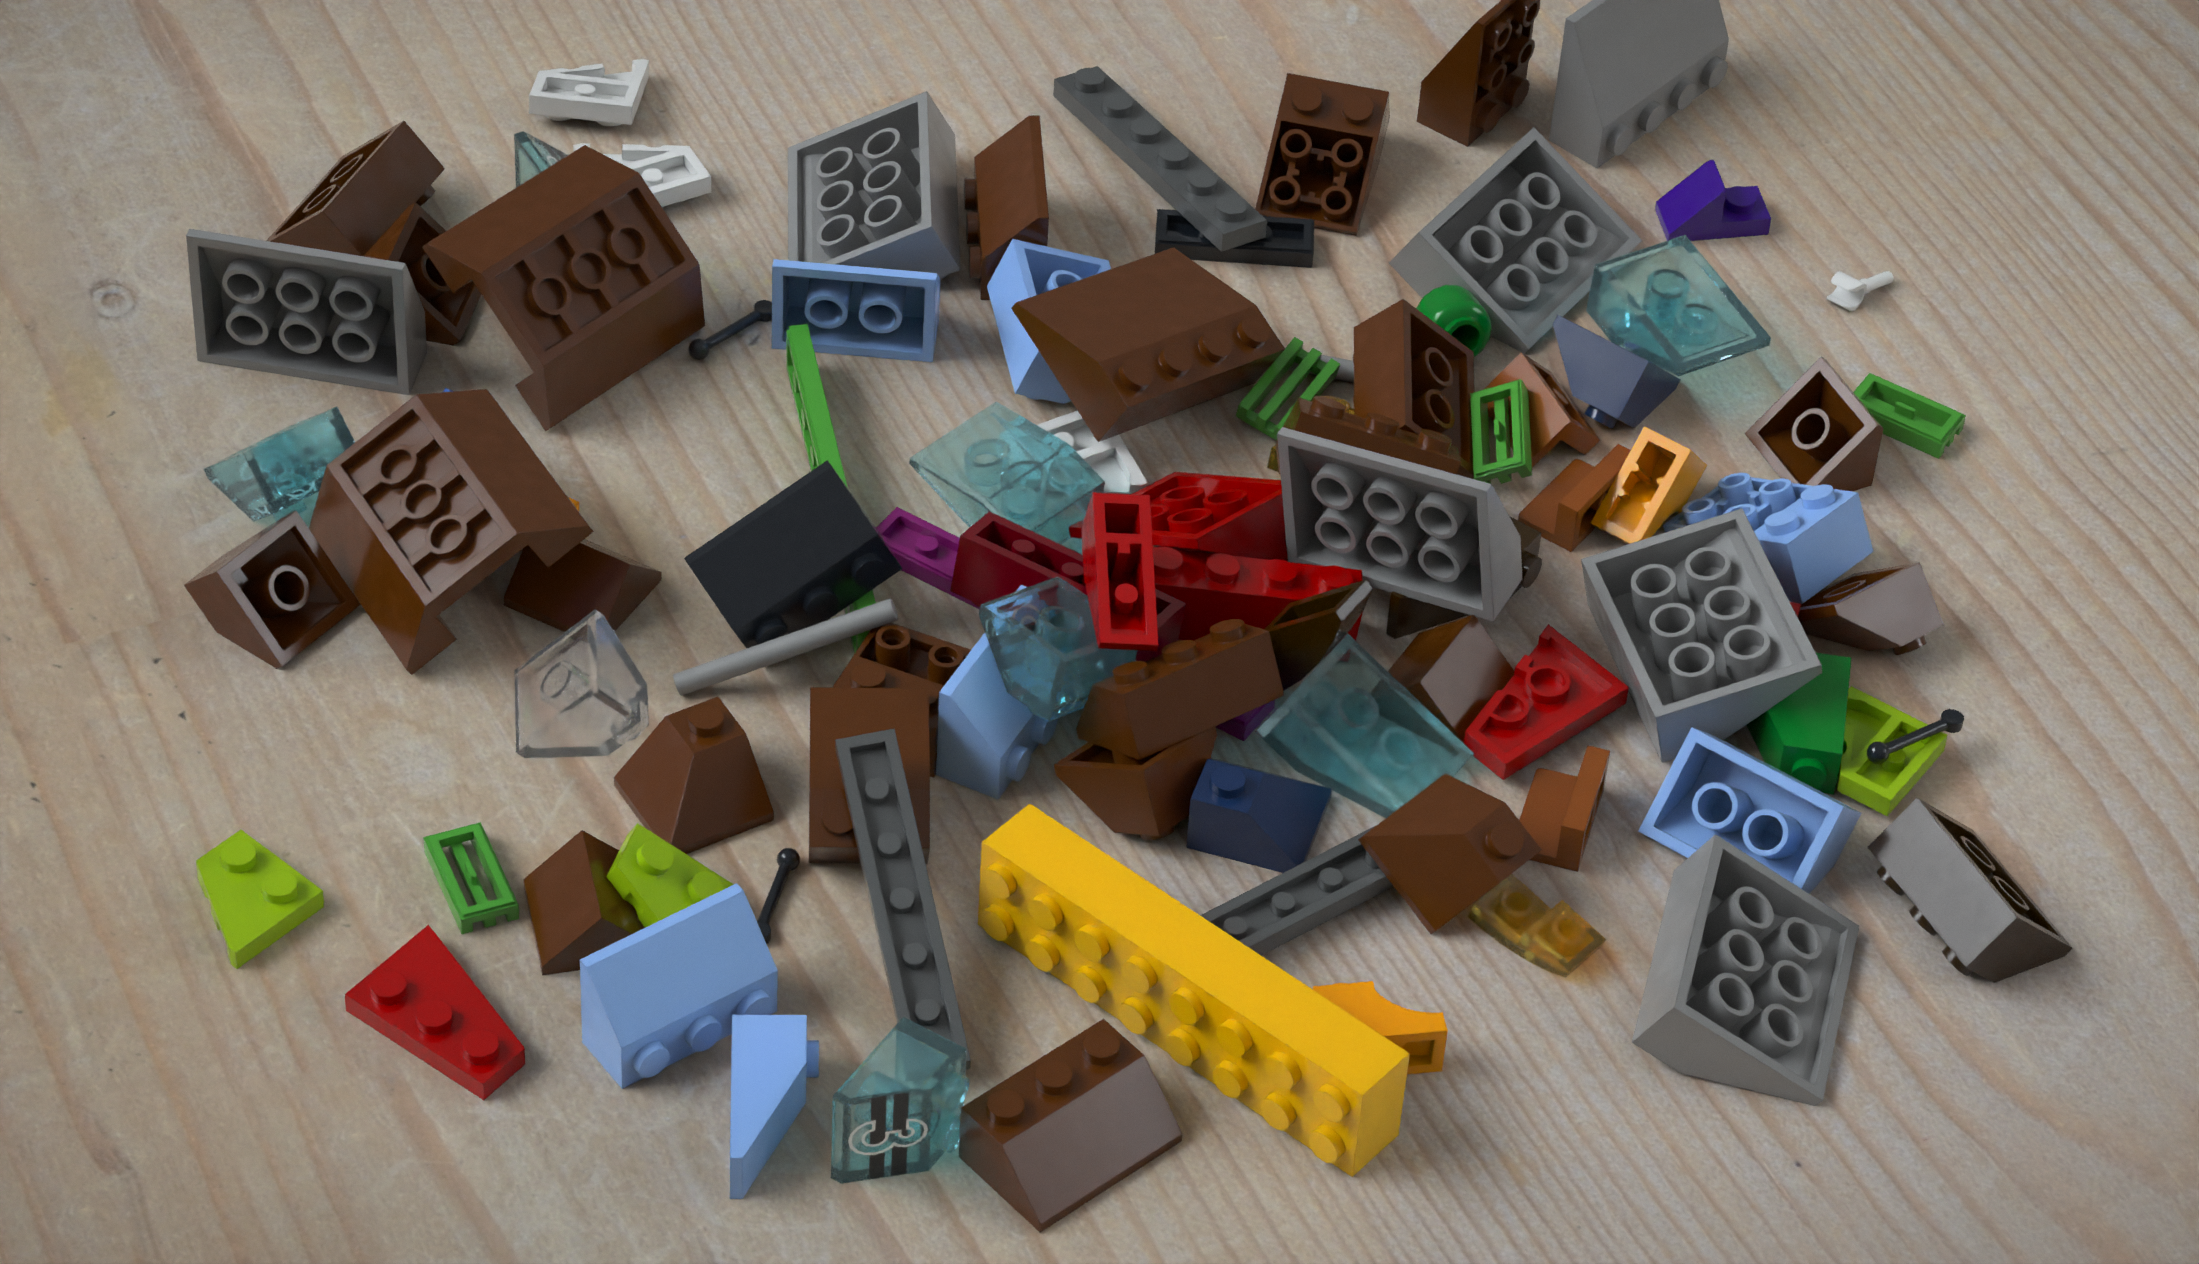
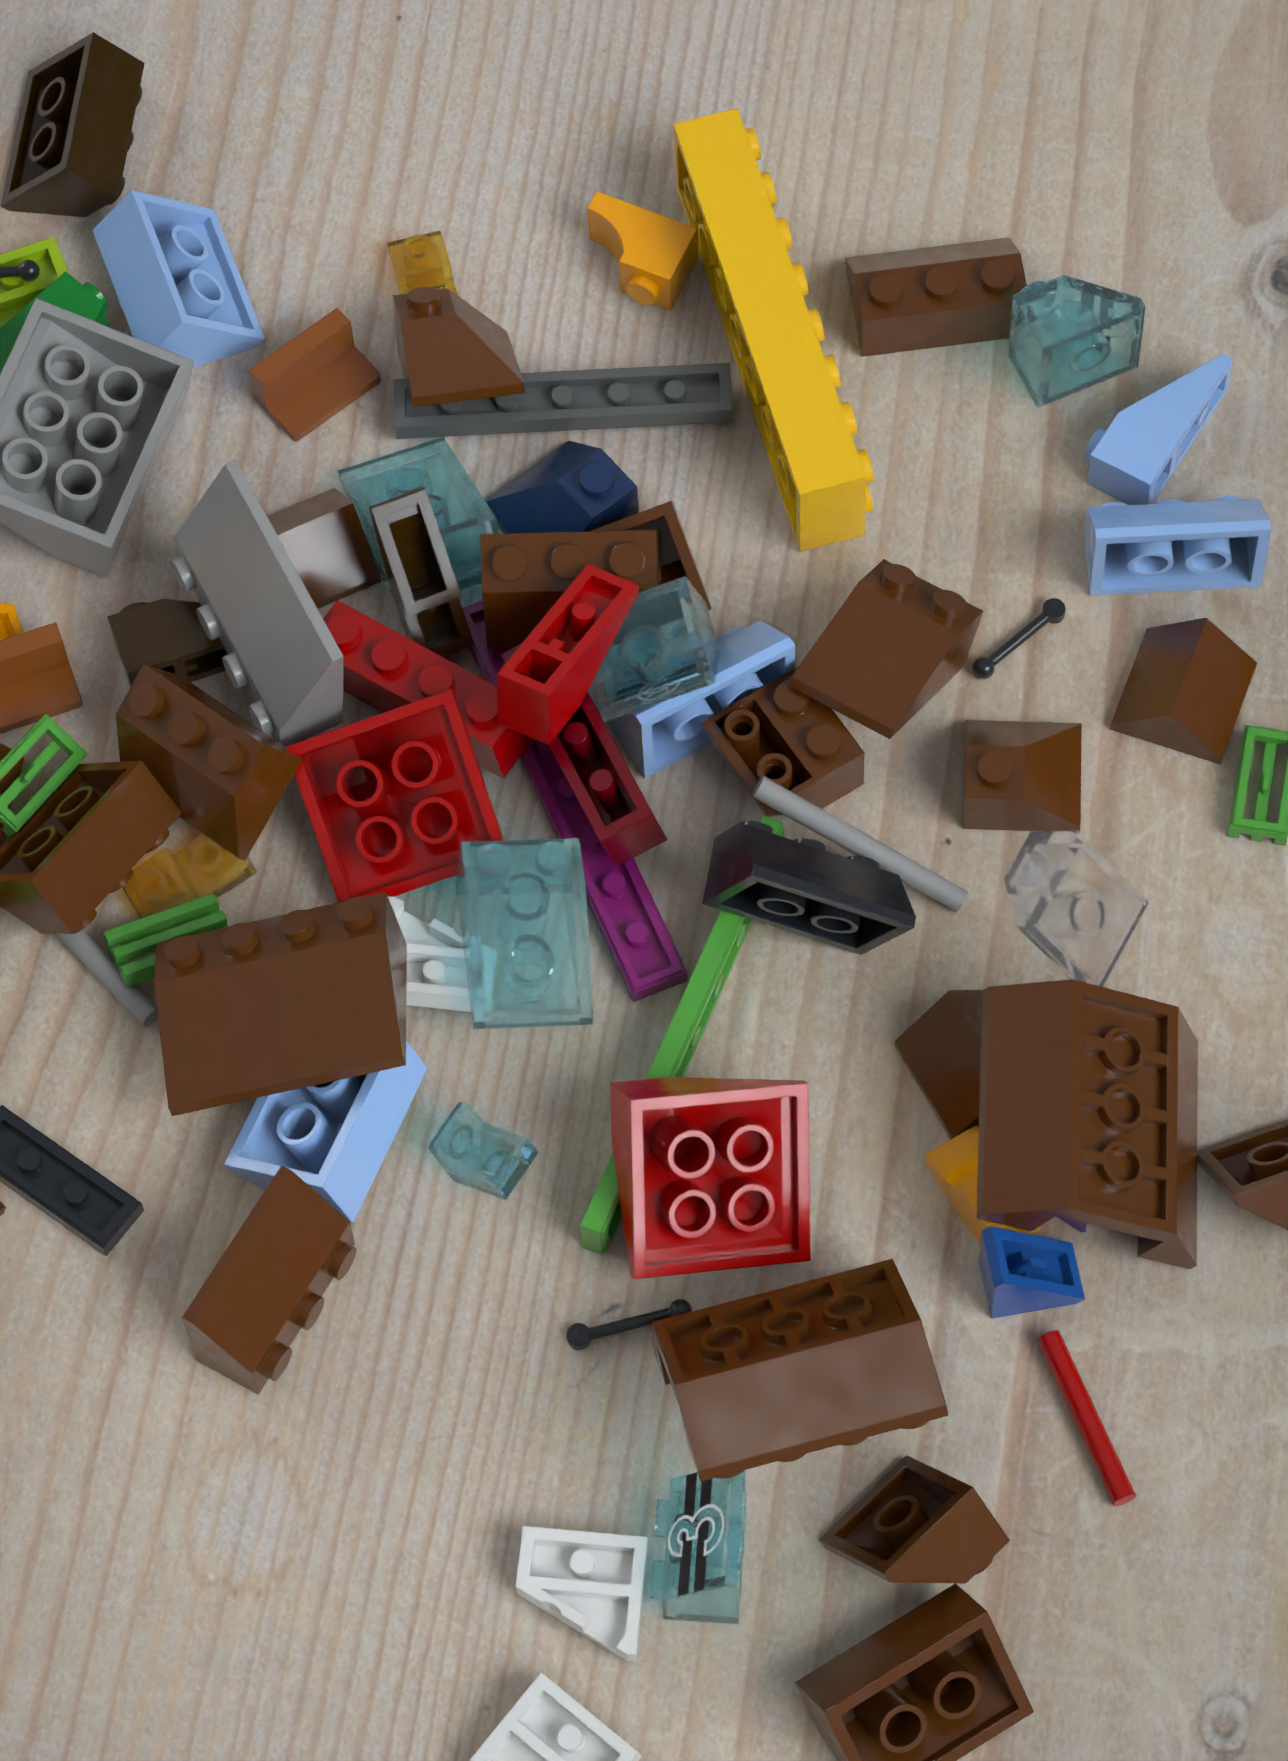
camera: 140 degrees left, 20 degrees up
(283, 467) = (1184, 1346): clear light blue slope -> none
(305, 312) = (1070, 1497): light grey slope -> none
(317, 401) = (1086, 1418): none -> red bar
(660, 876) = (1115, 650): lime wing -> none
(746, 372) = (711, 1173): none -> red slope
(857, 309) = (505, 1244): light blue slope -> none
(878, 192) = (382, 1404): light grey slope -> none
(898, 884) = (949, 503): dark grey plate -> none
(923, 363) = (481, 1153): none -> clear light blue bracket
(1160, 158) = (48, 1317): dark grey plate -> none
(1543, 705) = (277, 466): red wing -> none
(1746, 978) = (315, 153): light grey slope -> none

